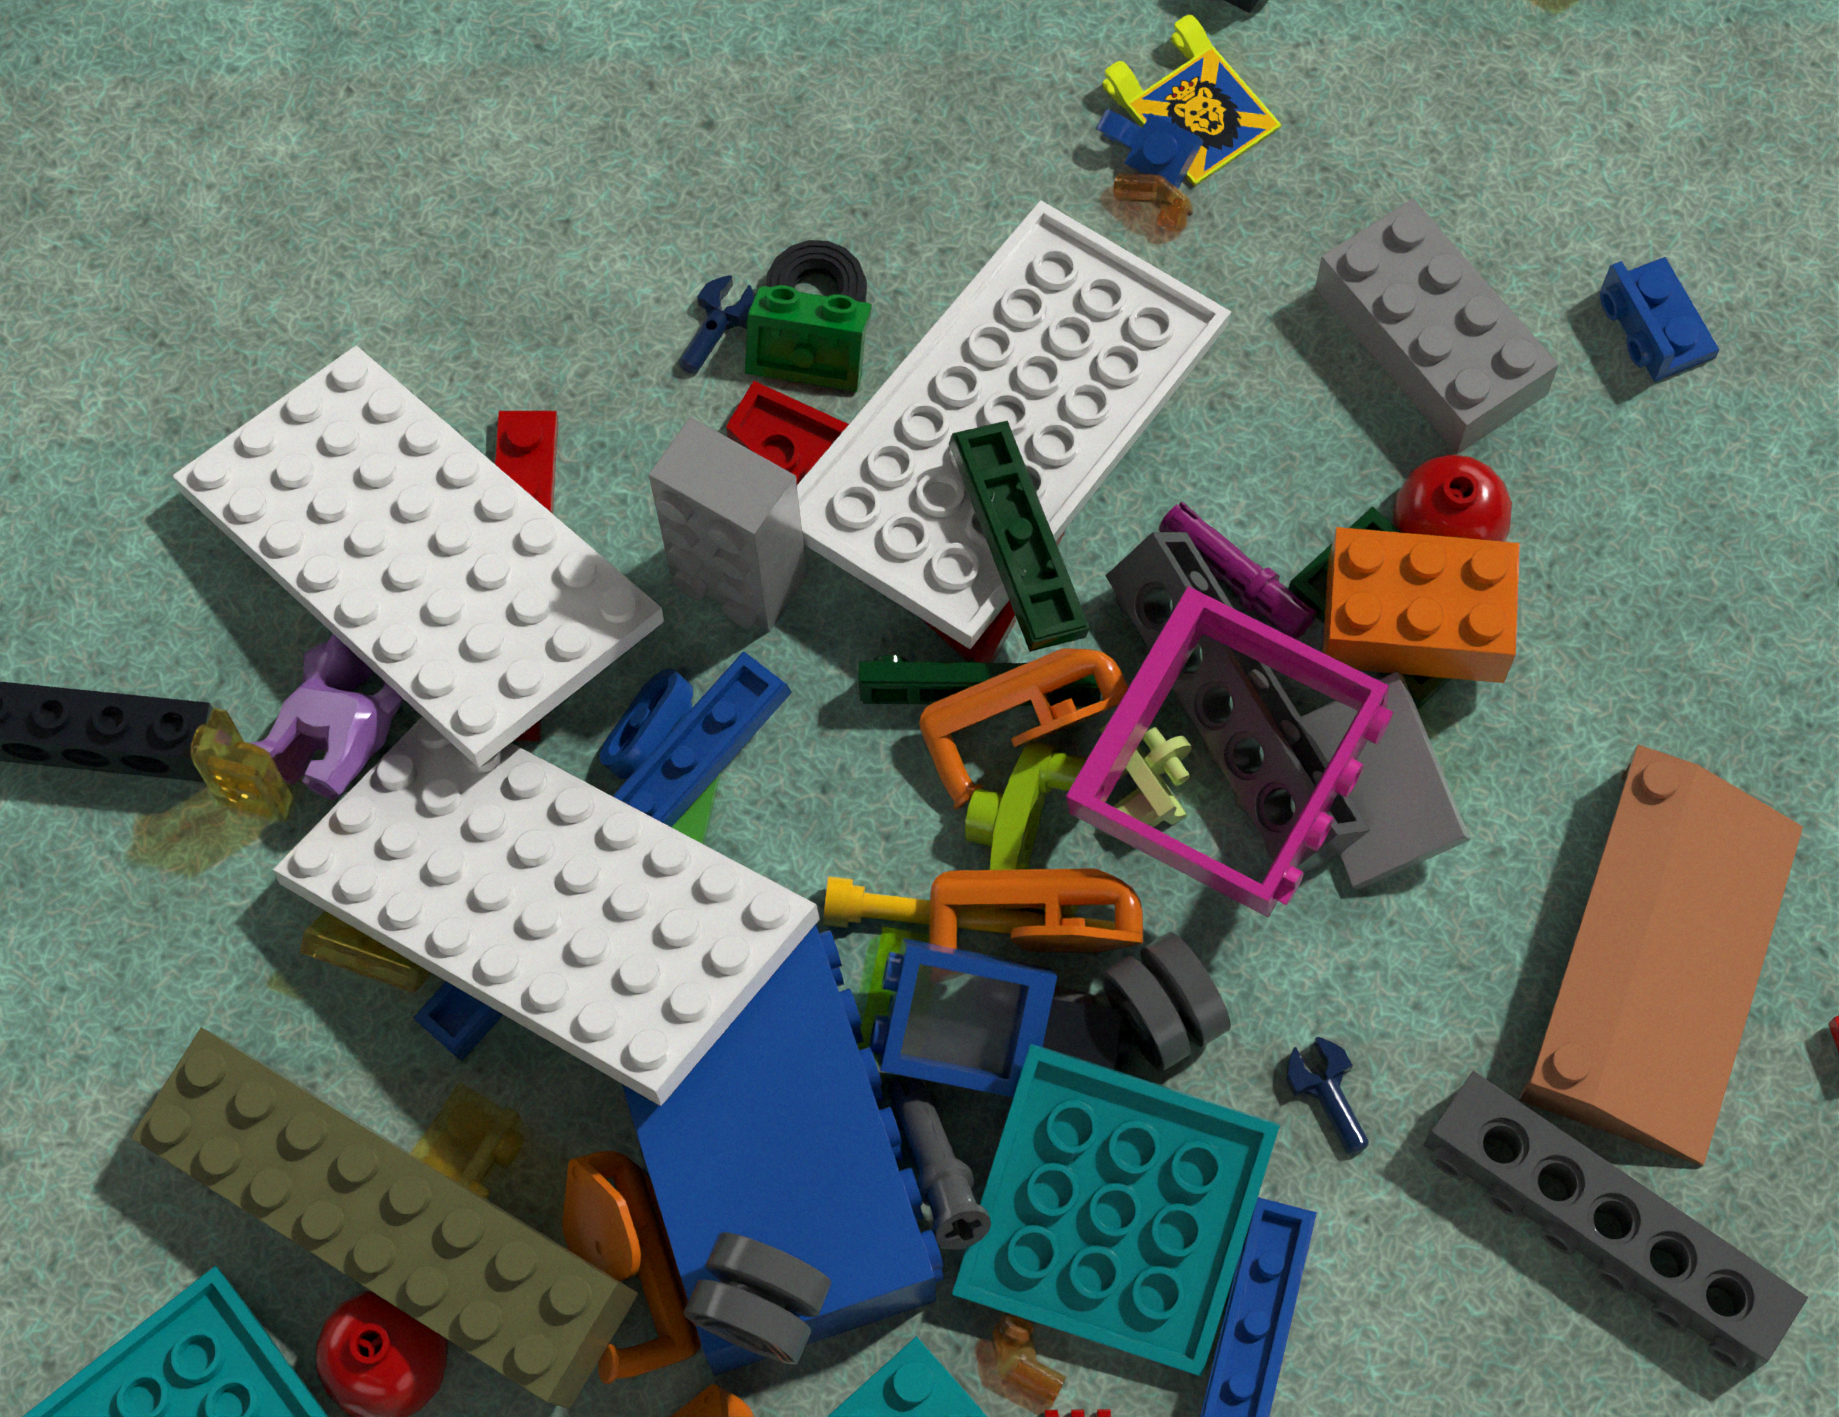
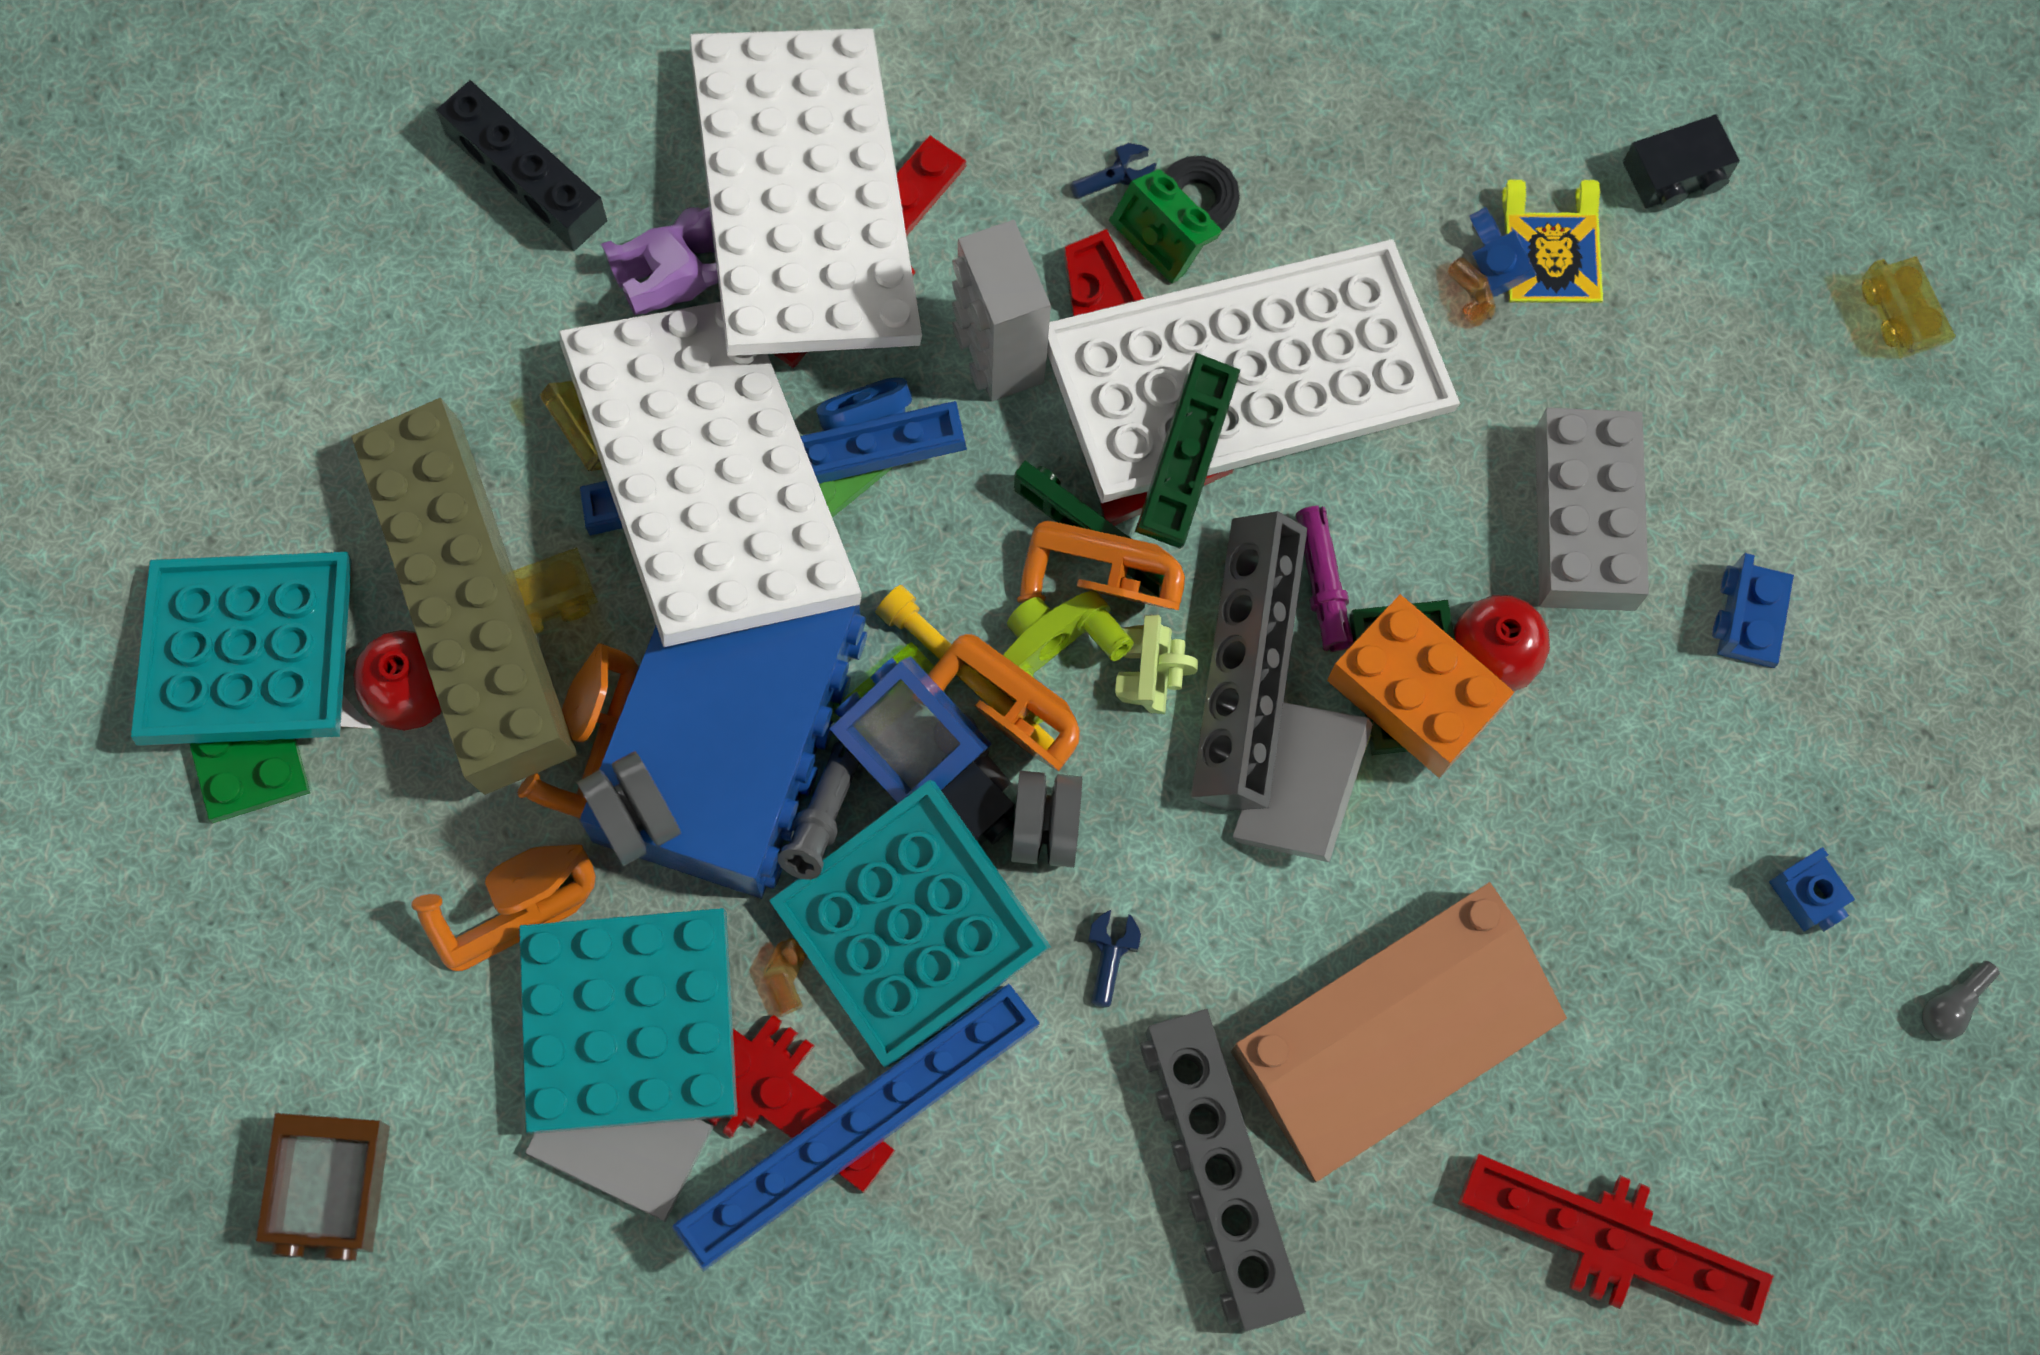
camera: 30 degrees right, 5 degrees up
(239, 771) = (583, 249): clear yellow bracket -> none
(1191, 618) = (1177, 617): dark pink window -> none

